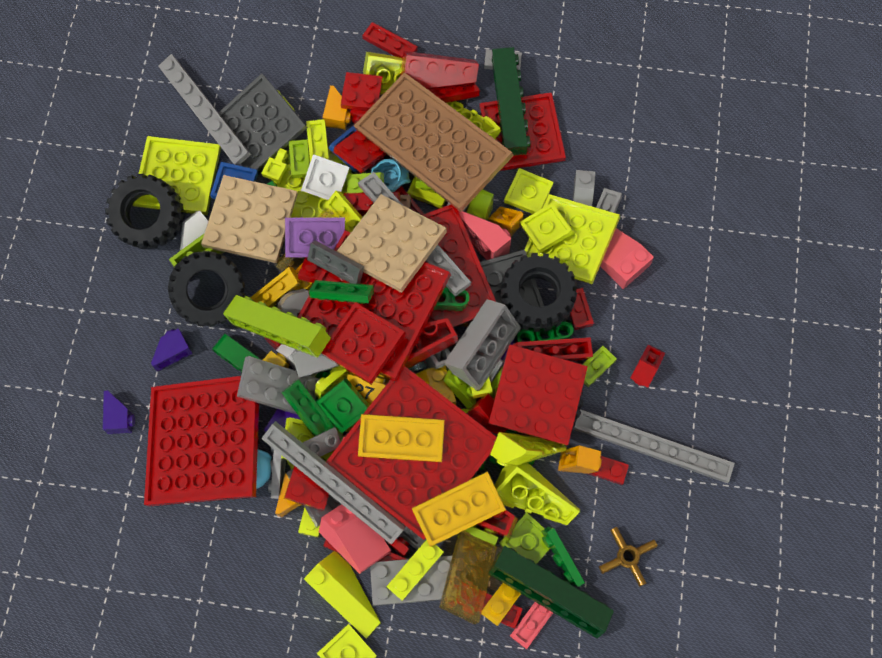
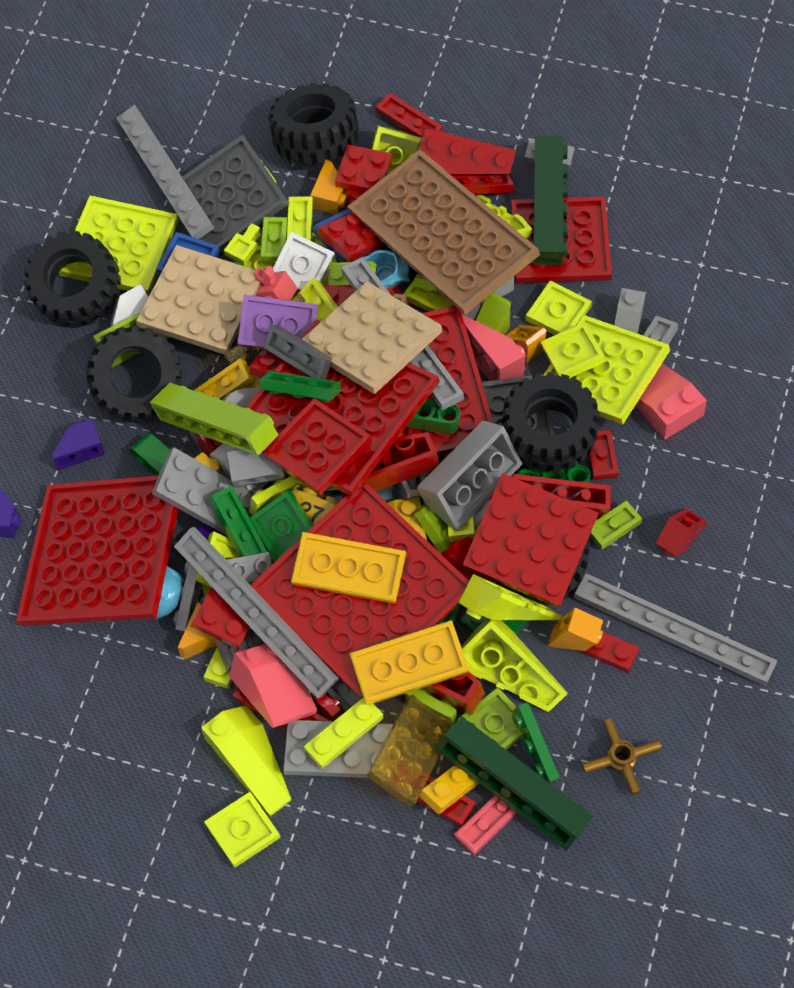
camera: 10 degrees right, 10 degrees down
(307, 202) = (275, 284): none -> coral brick
(312, 41) = (313, 124): none -> black tyre

